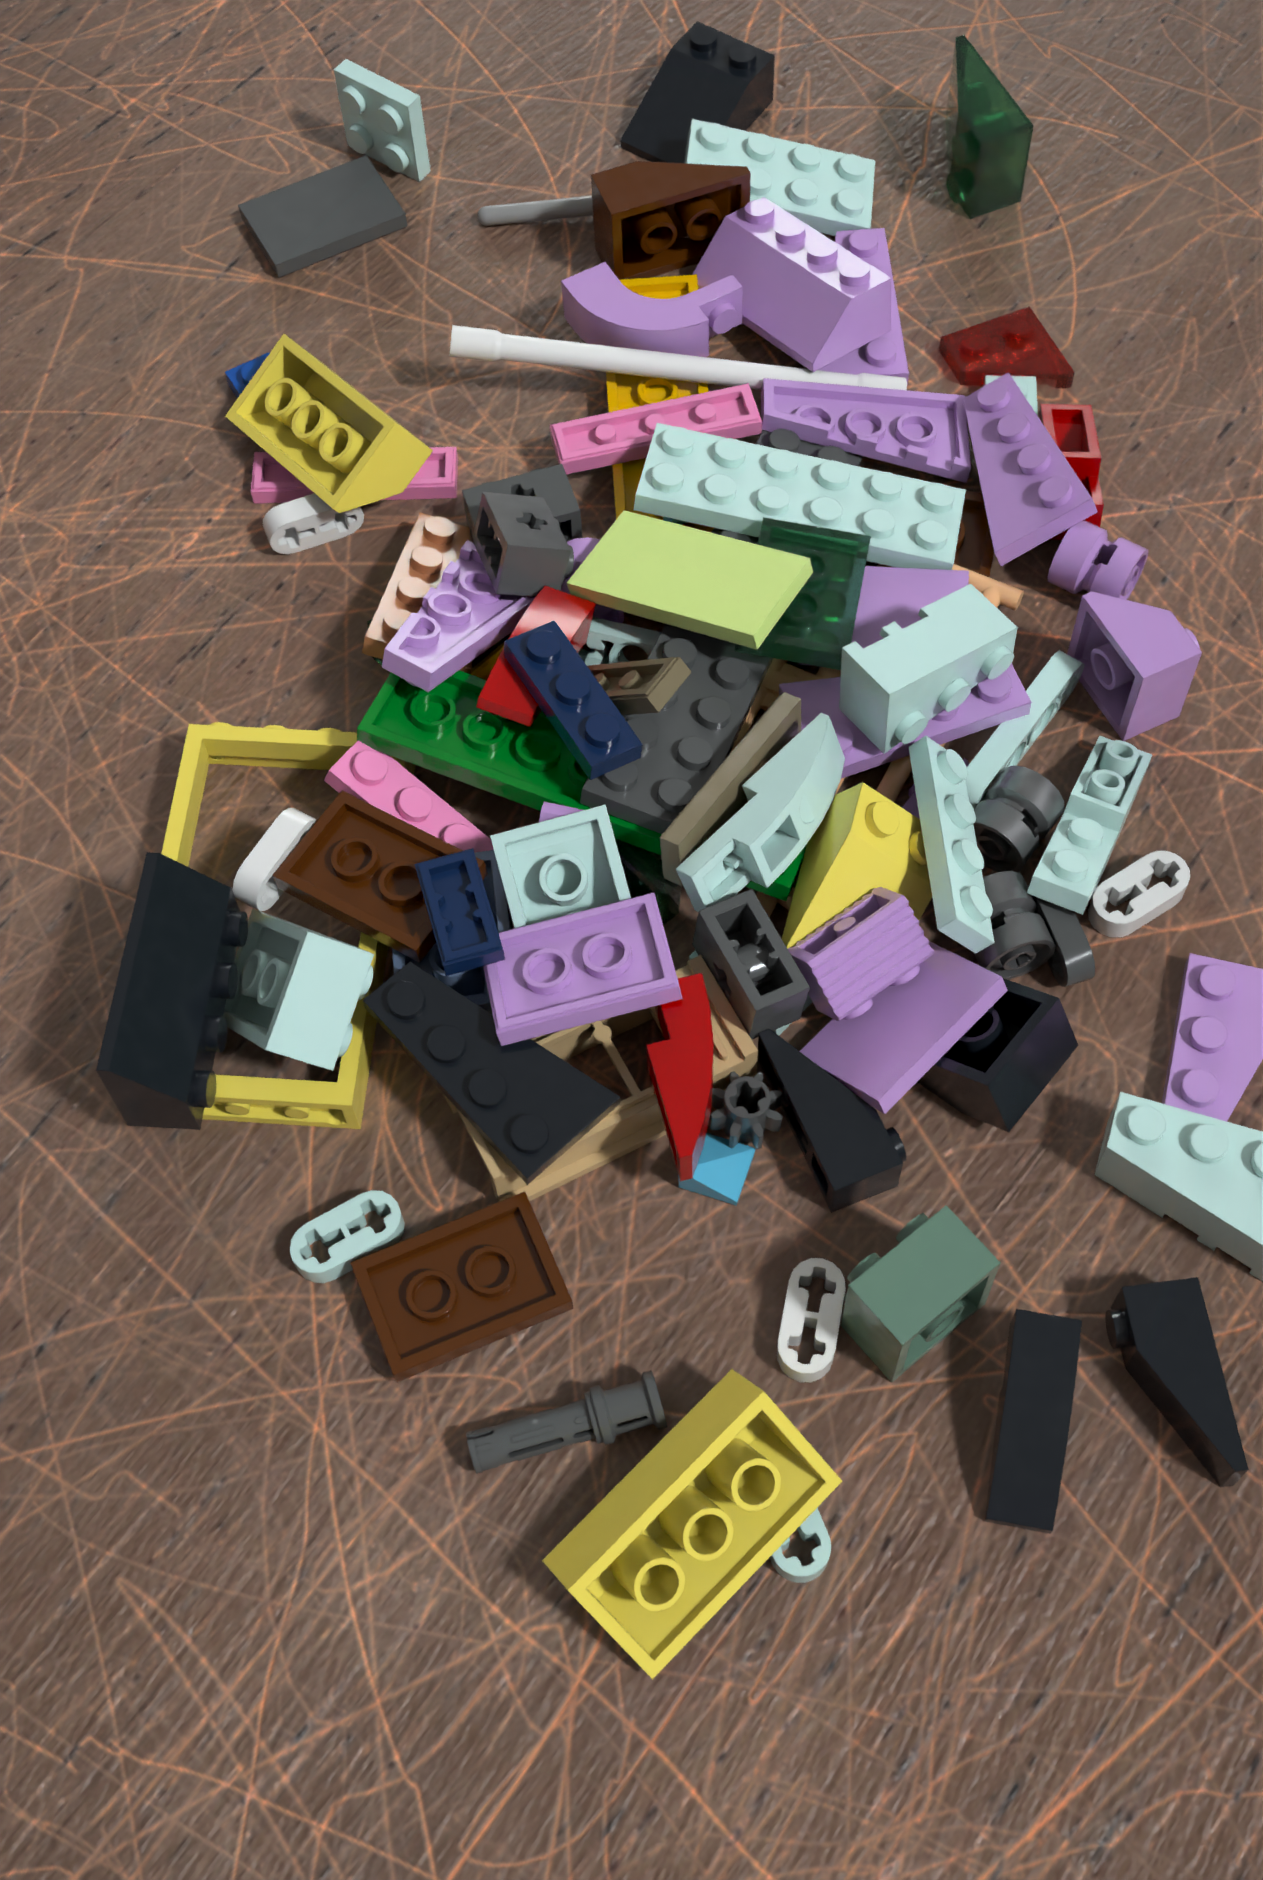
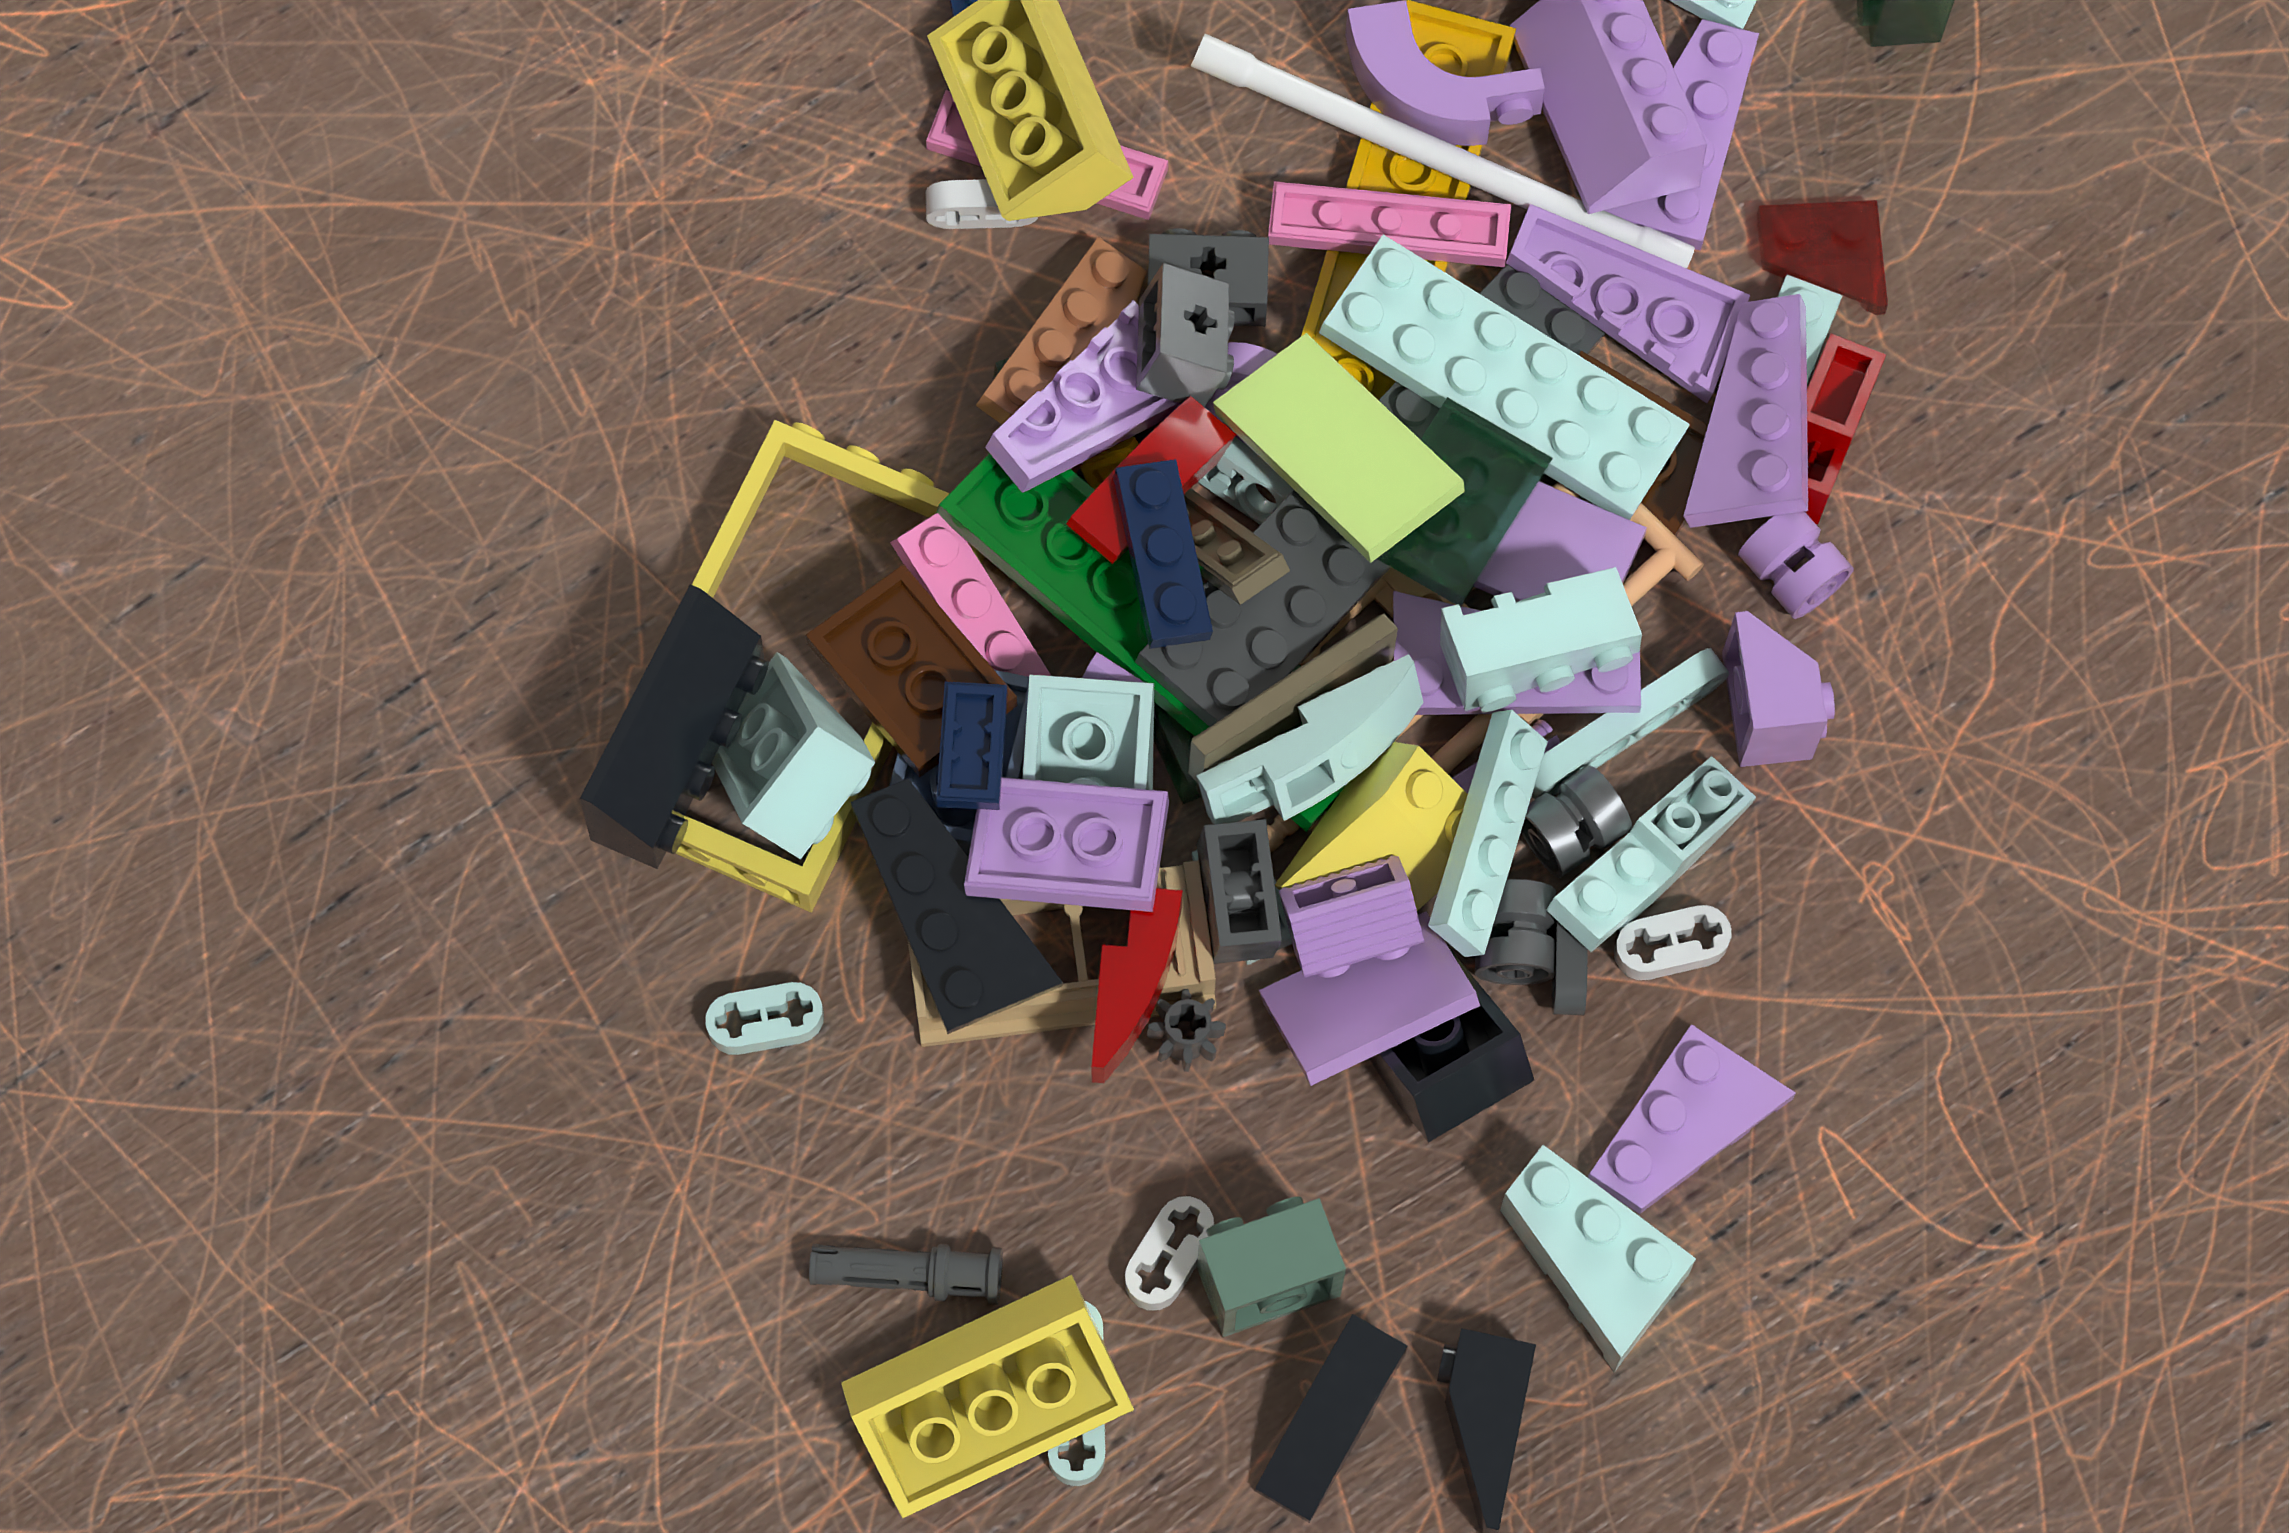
camera: 15 degrees right, 10 degrees up
(254, 879) = (788, 630): white beam -> none
(461, 1286) = (855, 1105): reddish brown plate -> none
(720, 1170) = (1141, 1078): medium azure slope -> none
(833, 1126) = (1264, 1081): black slope -> none

